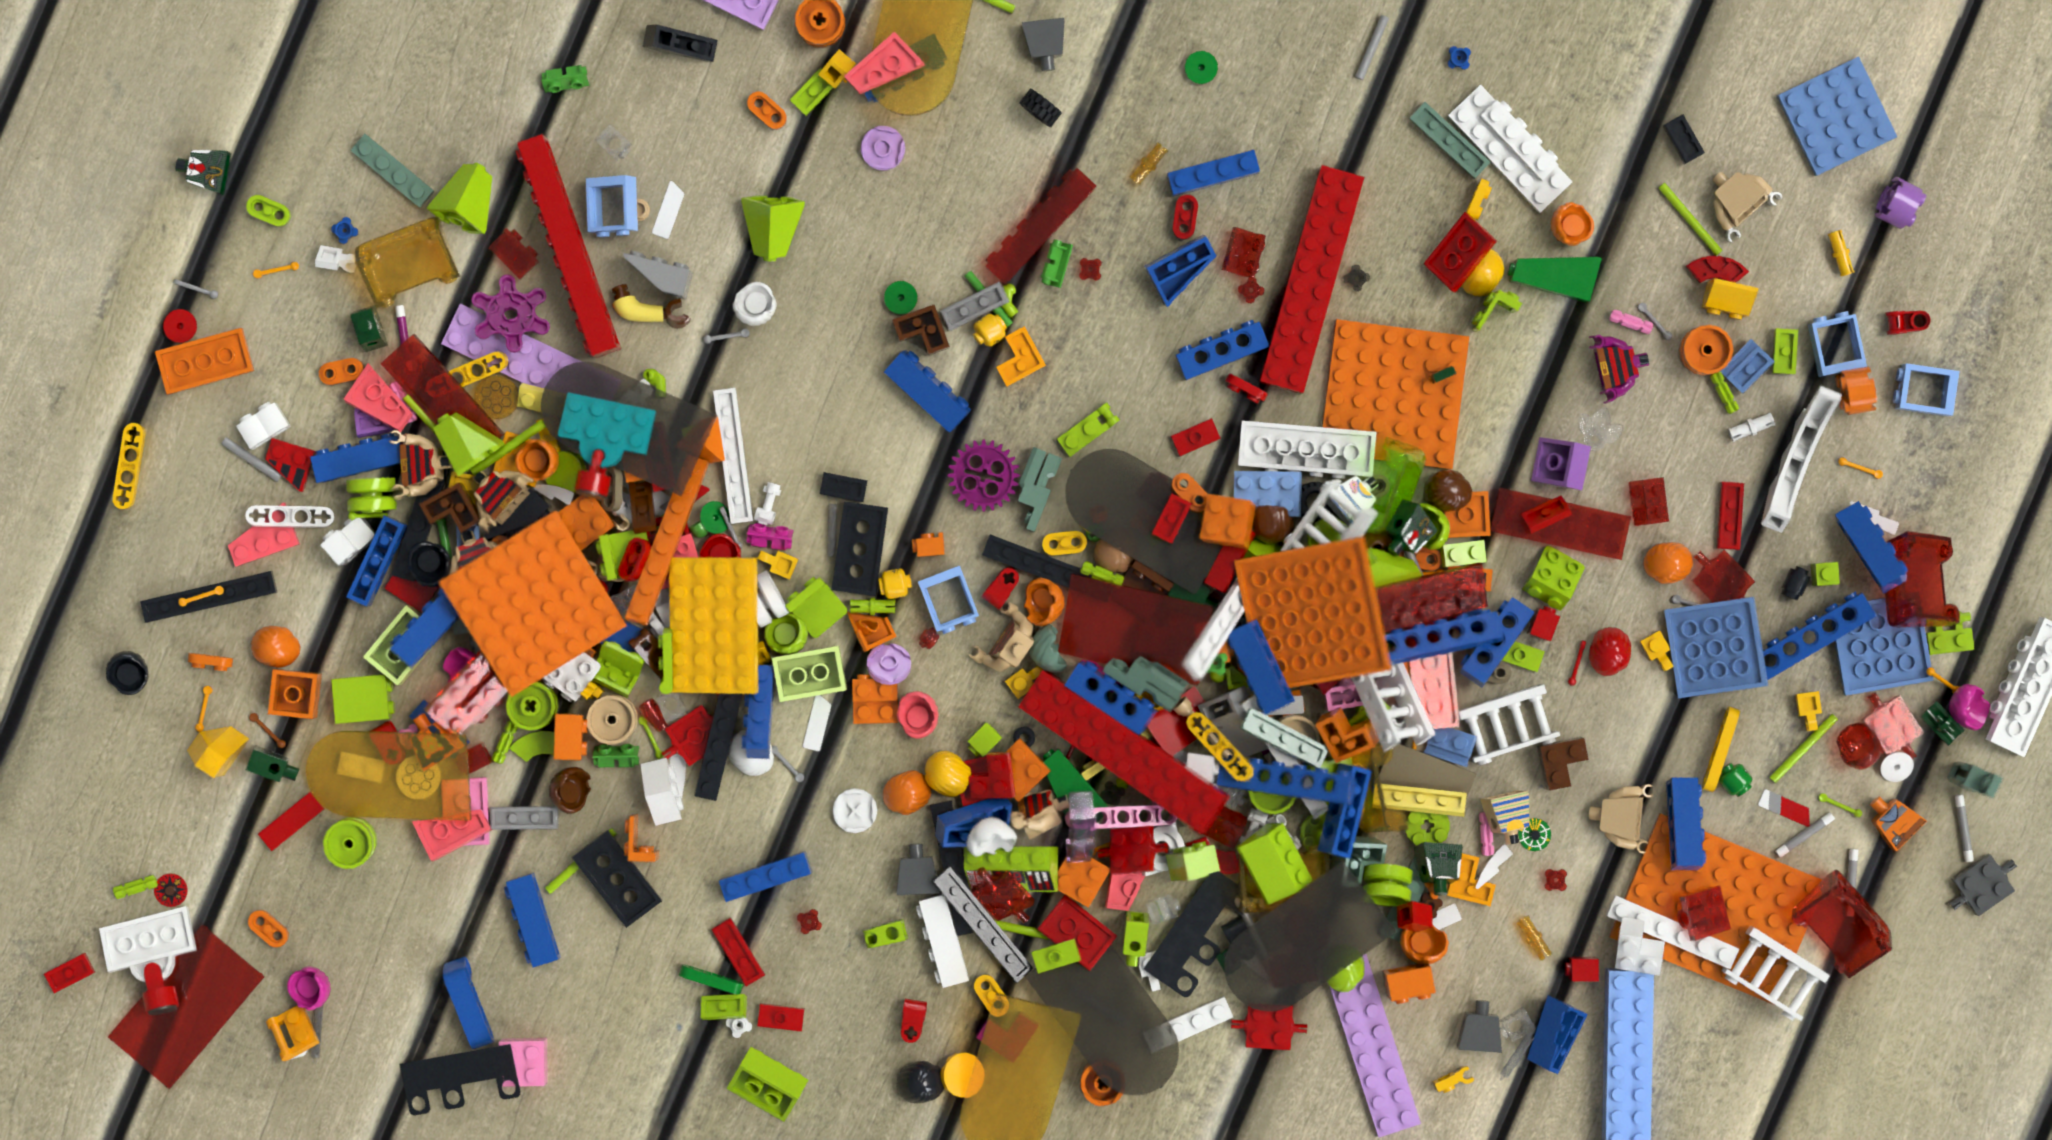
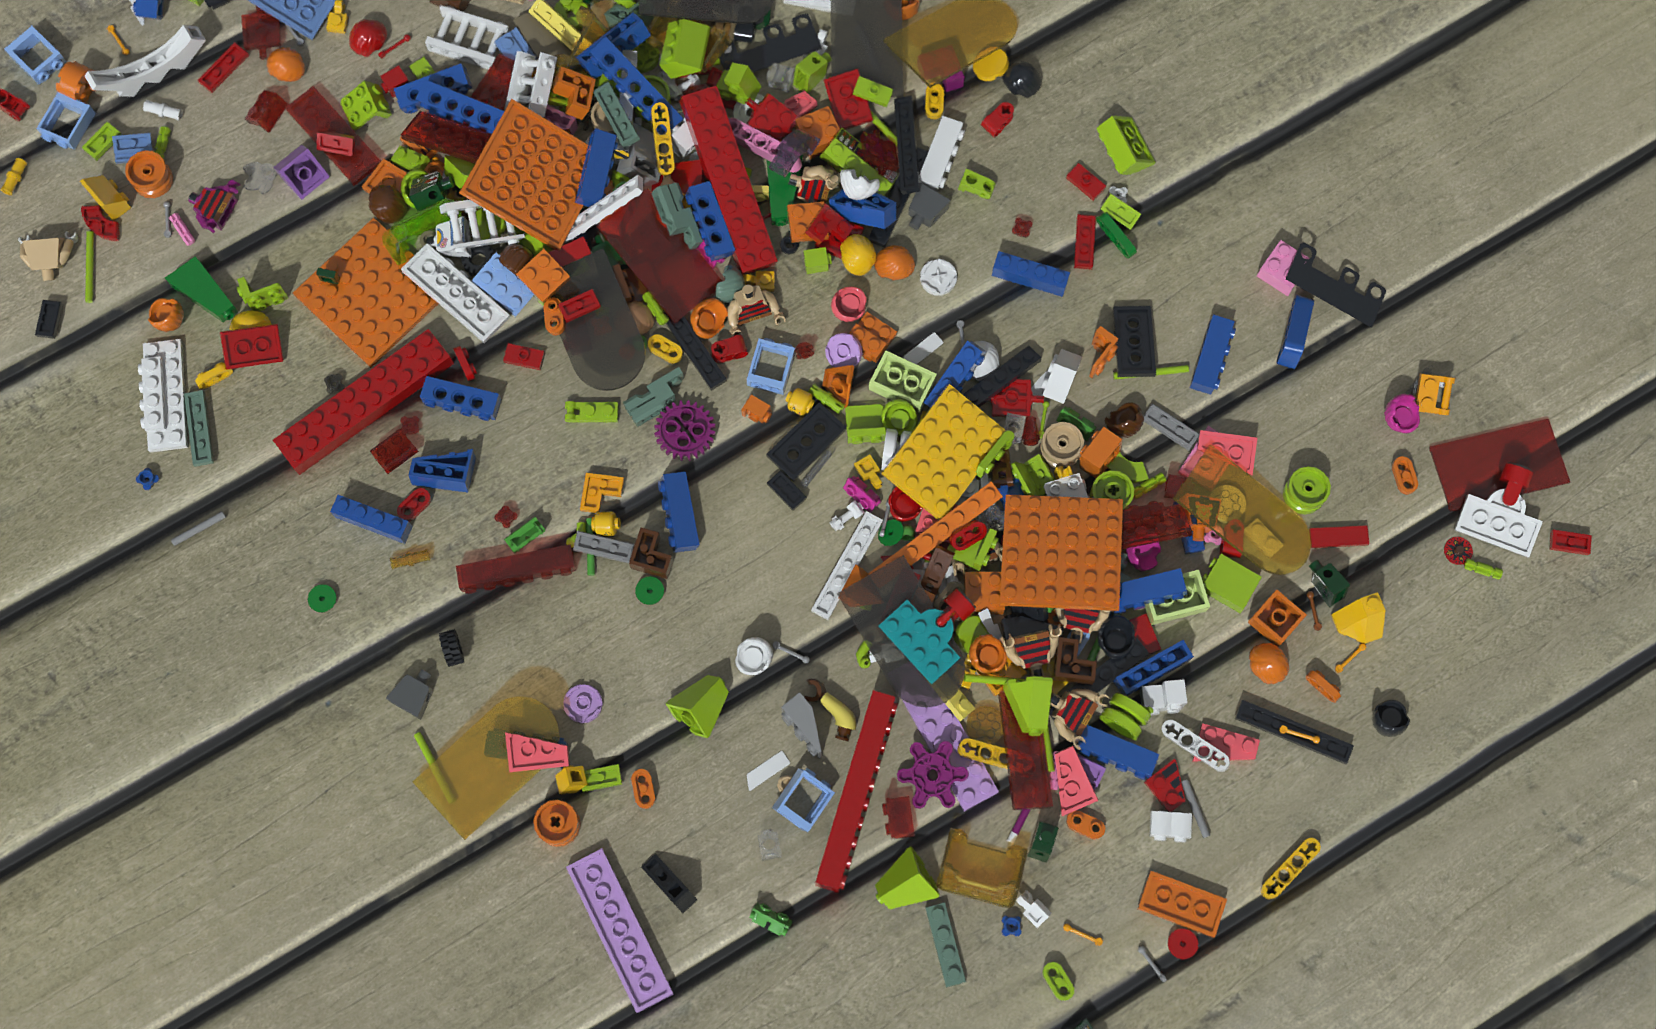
camera: 145 degrees left, 15 degrees down
(1108, 797) = (758, 169): clear smoke plate -> none

